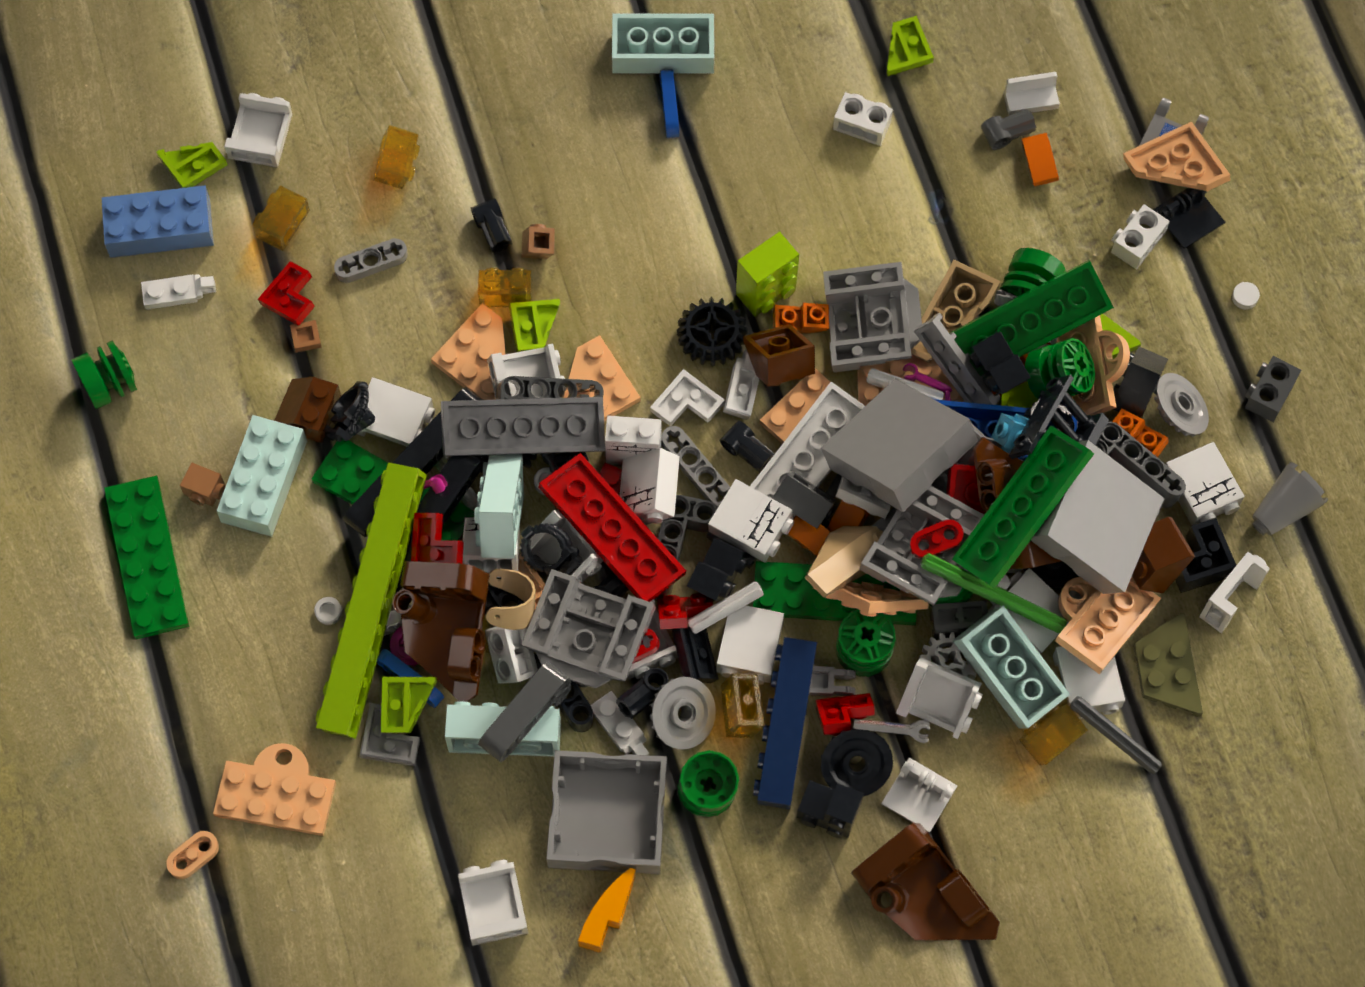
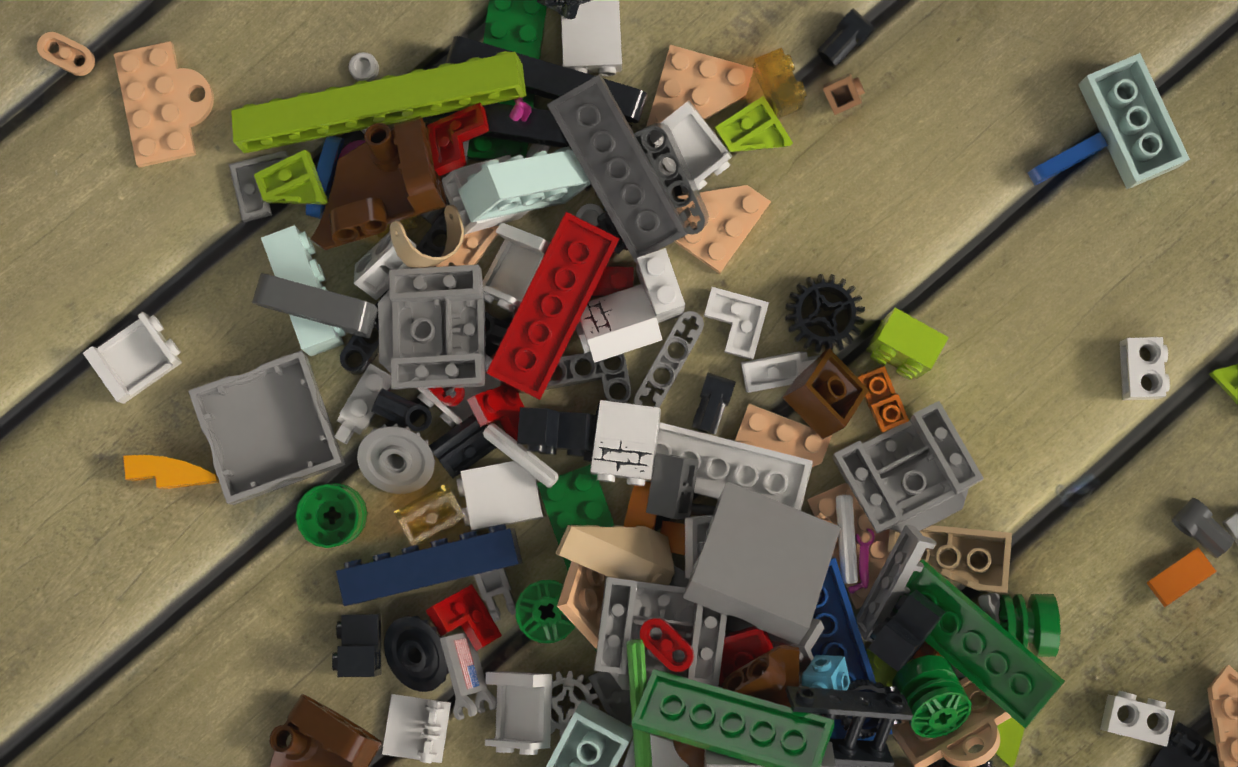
camera: 65 degrees right, 15 degrees up
(569, 559) = (491, 248): black piece -> none

